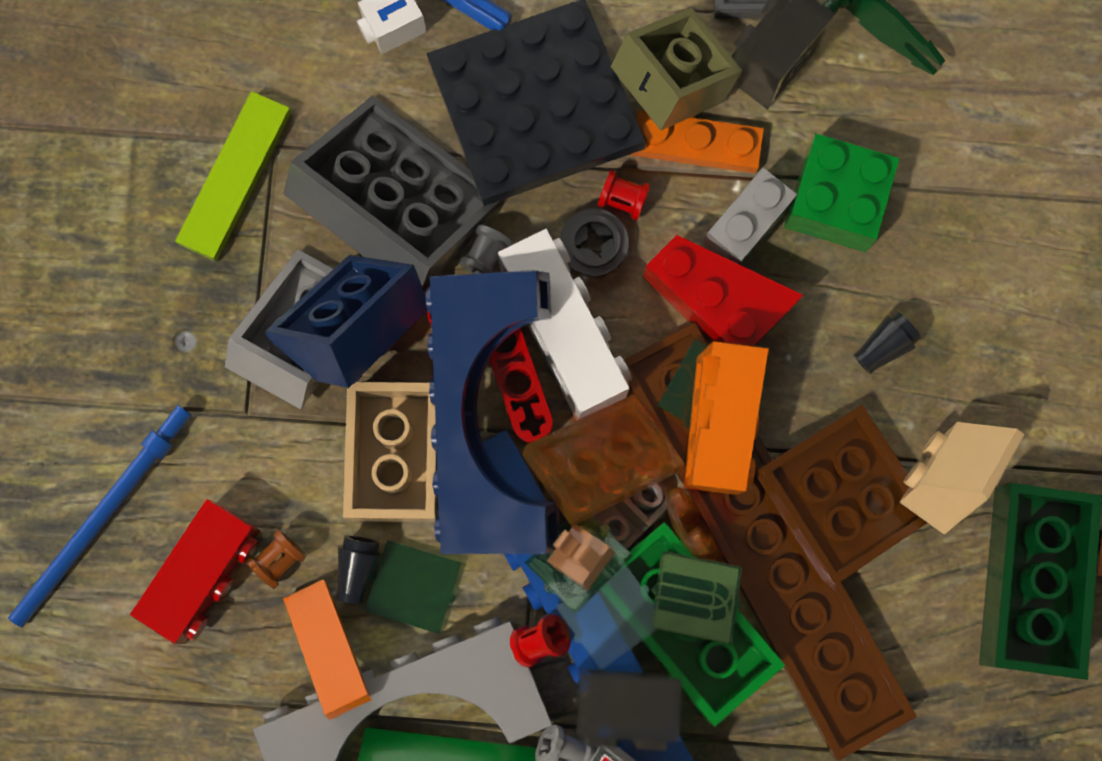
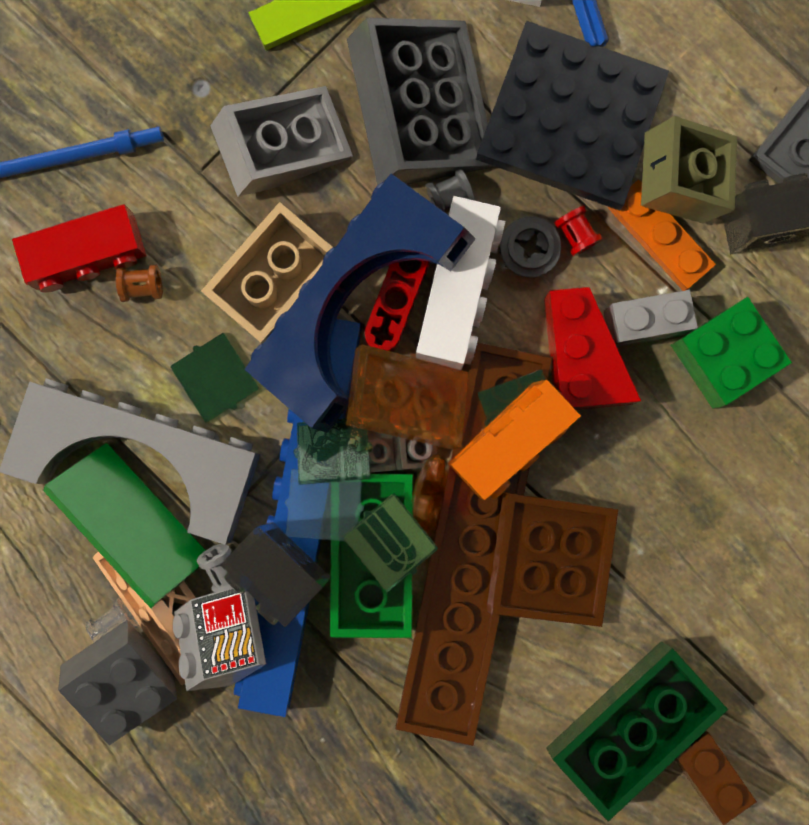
camera: 40 degrees right, 5 degrees up
(327, 649) = (121, 370): orange tile -> none
(350, 318) = (317, 160): dark blue slope -> none
(356, 566) = (187, 332): black cone -> none
(546, 638) = (269, 485): red bush -> none
(580, 556) = (334, 449): medium nougat tile -> none
(888, 342) = (673, 482): black cone -> none
(959, 472) = (643, 610): tan slope -> none

